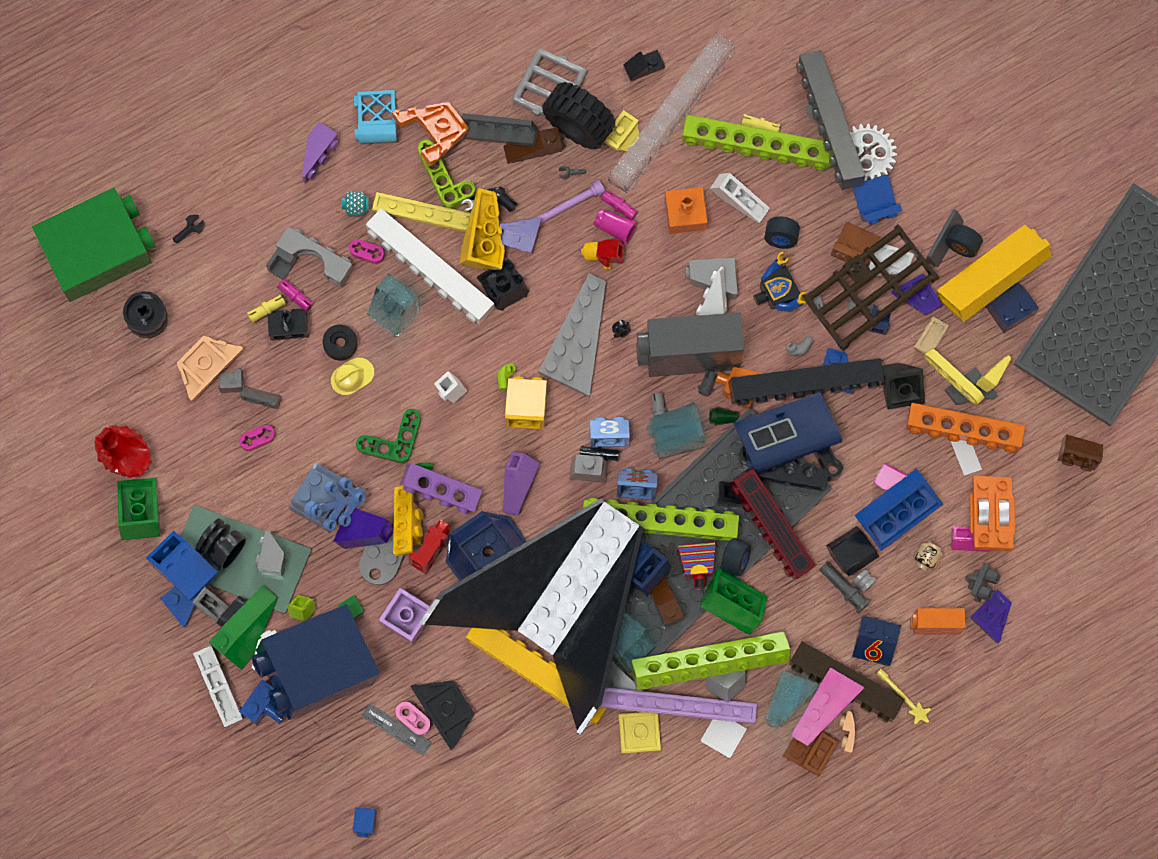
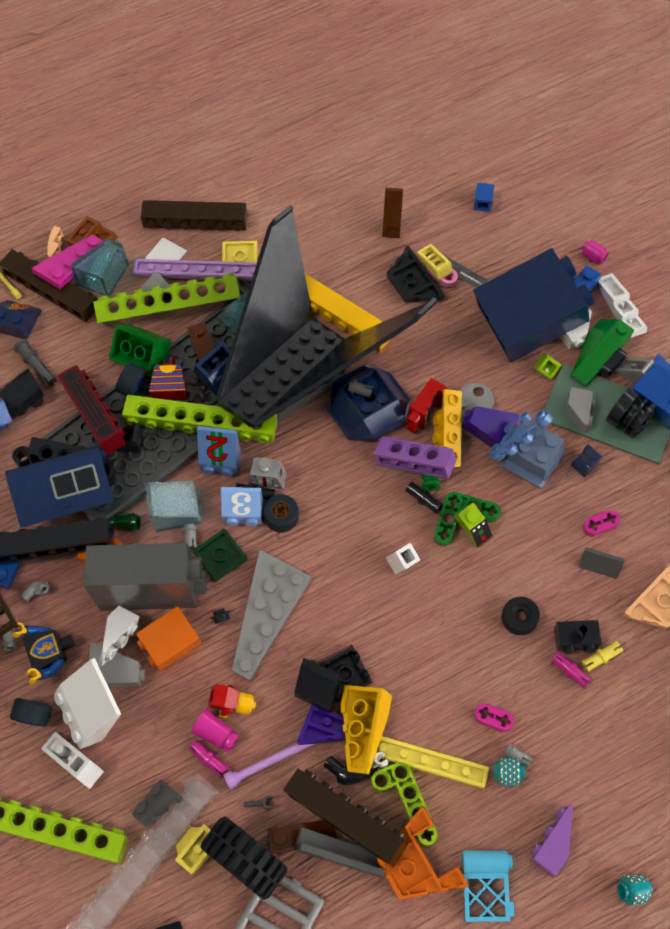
camera: 175 degrees left, 10 degrees down
(231, 382) = (632, 579): flat silver panel -> none
(242, 751) = (594, 251): none -> dark pink brick
(253, 118) = (634, 889): none -> teal head
(268, 498) = (586, 461): none -> dark blue panel
(281, 263) = (588, 707): dark grey panel -> none
(336, 268) = (574, 727): light grey arch -> none
(350, 221) = (513, 752): none -> light grey pin
(352, 376) = (505, 583): light yellow piece -> none
(353, 605) = (500, 364): green tile -> none
(384, 426) = (474, 524): none -> lime slope
(393, 305) = (461, 649): clear light blue slope -> none
(404, 615) = (448, 349): lavender brick -> none
(410, 713) = (440, 270): none -> light yellow slope
(430, 267) = (424, 695): white brick -> none
(430, 455) = (424, 497): none -> black pin
(469, 779) = (392, 212): none -> reddish brown slope
(496, 156) = (346, 817): none -> dark brown brick
(497, 551) = (360, 388): none -> dark grey pin
(503, 374) = (348, 574): lime arm -> none
(517, 481) = (337, 466): medium lavender slope -> none
(525, 266) = (318, 684): none -> black slope
(525, 403) = (325, 539): yellow slope -> none
(573, 437) = (281, 520): none -> black wheel
(627, 390) = (220, 555): none -> dark green tile
(659, 164) = (155, 803): none -> dark grey wing
(667, 301) = (168, 639): none -> orange brick
(685, 210) = (134, 745): orange brick -> none
(696, 781) = (194, 215): none -> dark brown brick
(730, 234) = (87, 705): none -> white slope
(759, 123) = (33, 850): light yellow pin -> none
(864, 581) = (14, 365): light grey wheel -> none

